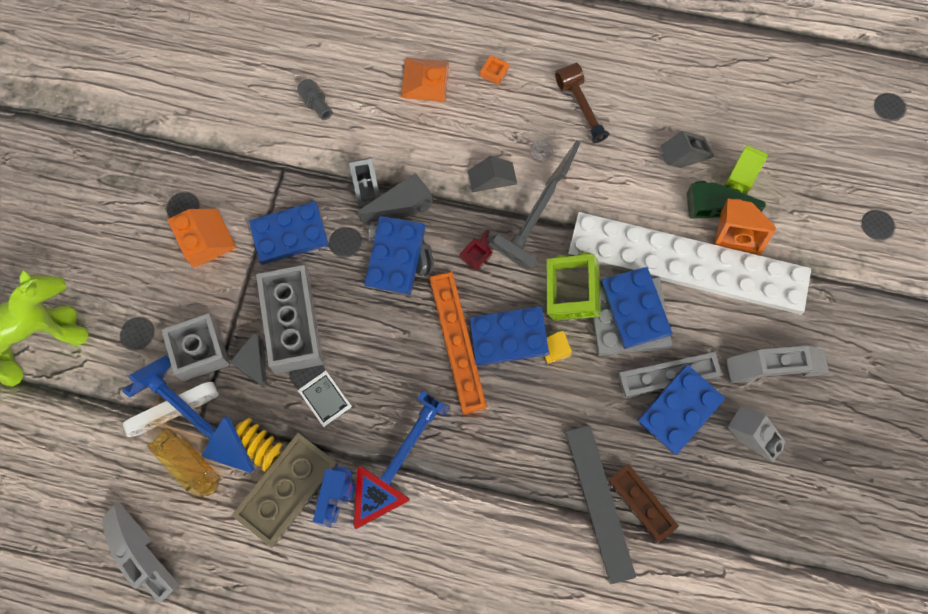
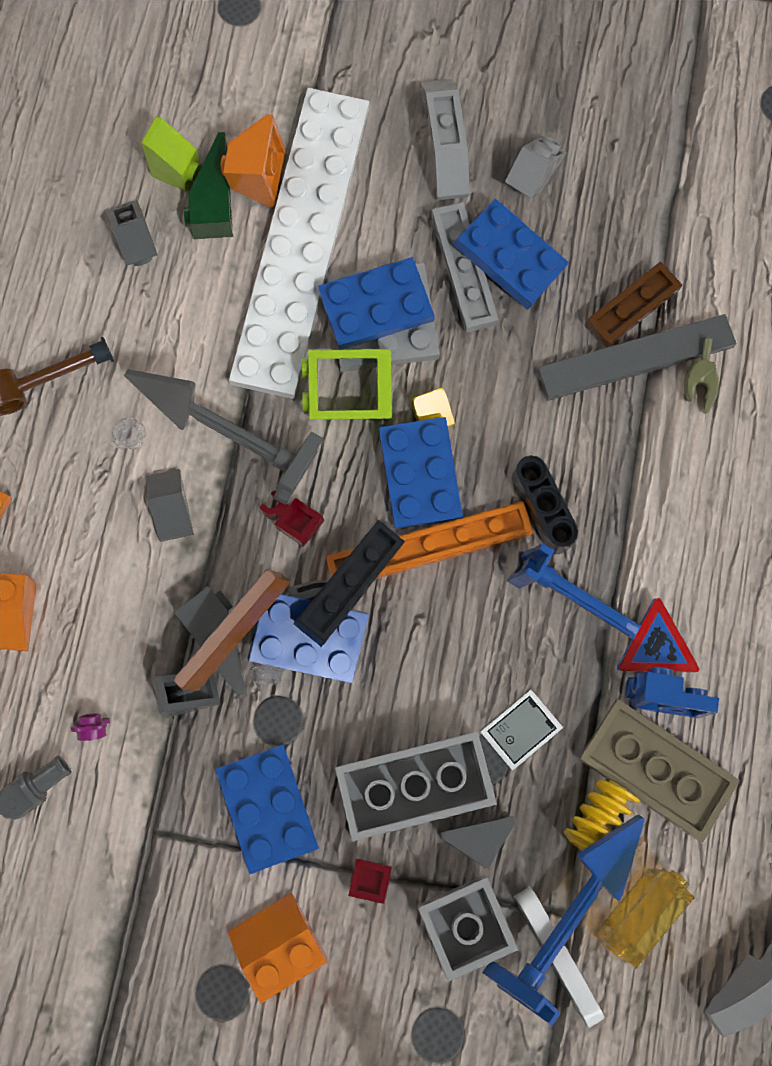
camera: 100 degrees left, 5 degrees up
(235, 292) = (370, 881): none -> dark red plate
(348, 130) = (90, 727): none -> magenta plate
(397, 201) = (231, 630): none -> dark orange tile
(428, 279) = (349, 583): none -> black tile
(490, 411) = (547, 489): none -> black beam
(585, 556) = (703, 373): none -> olive hand

